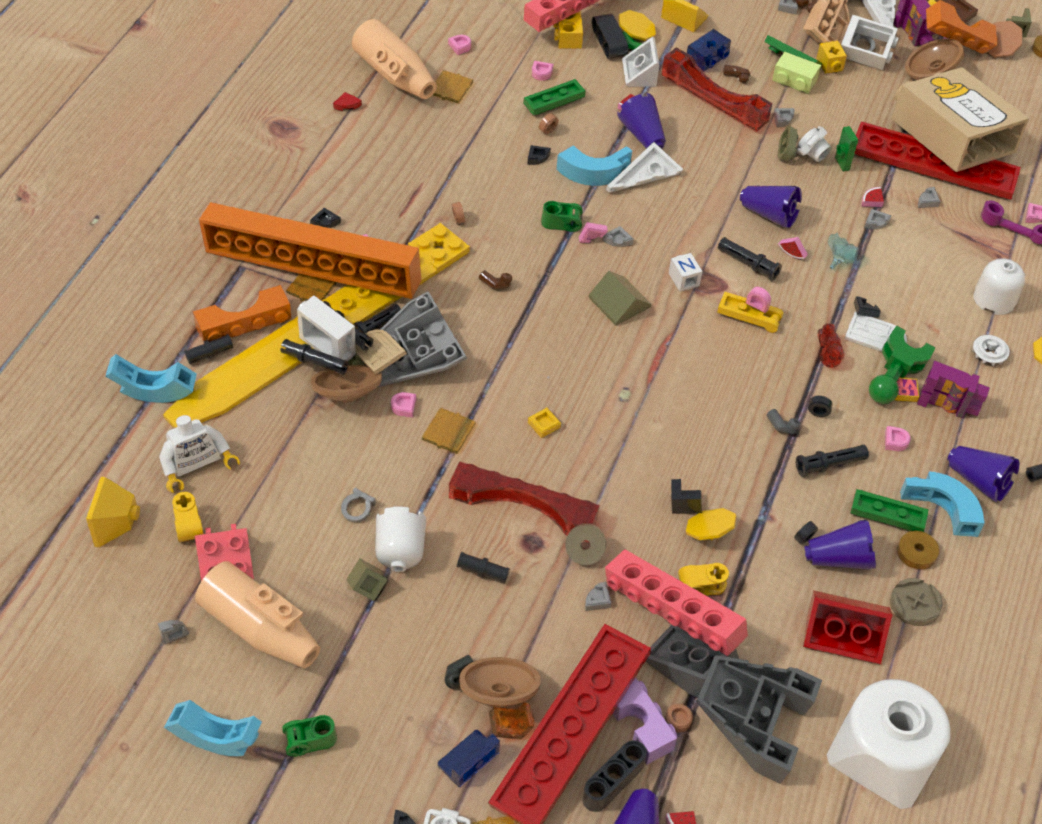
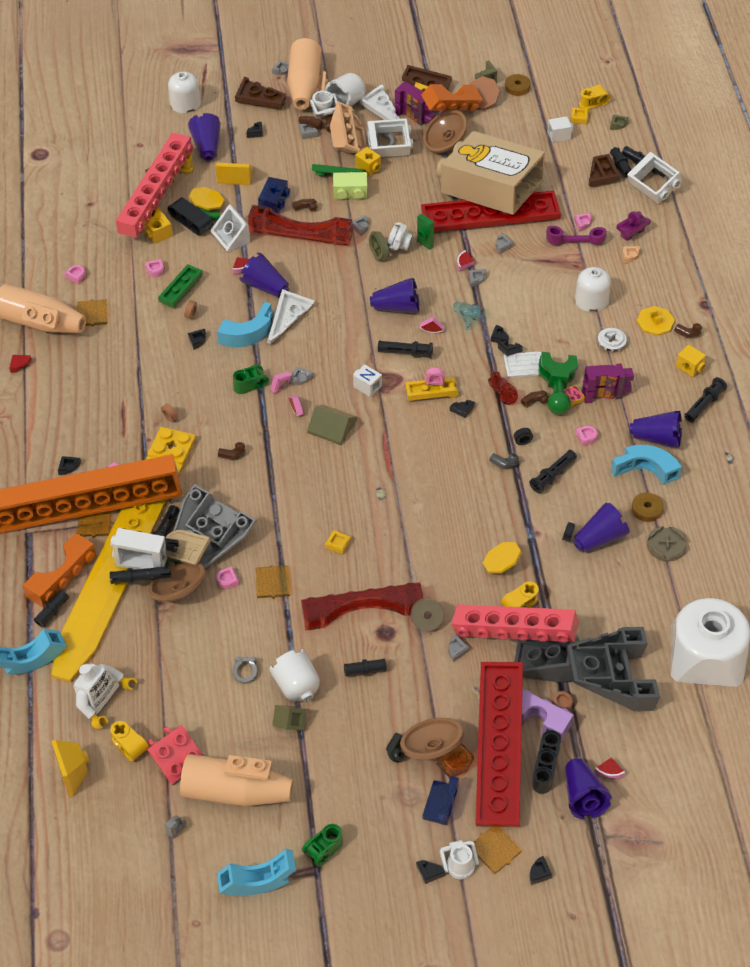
camera: 25 degrees left, 0 degrees up
(593, 263) = (296, 404): none -> bright pink tile
(685, 500) = (474, 549): black panel -> none
(772, 347) = (462, 408): none -> black tile
(847, 627) = (634, 583): red slope -> none
(859, 370) = (531, 397): none -> reddish brown arm
(863, 289) = (499, 335): none -> black tile
(889, 511) = (613, 489): green plate -> none

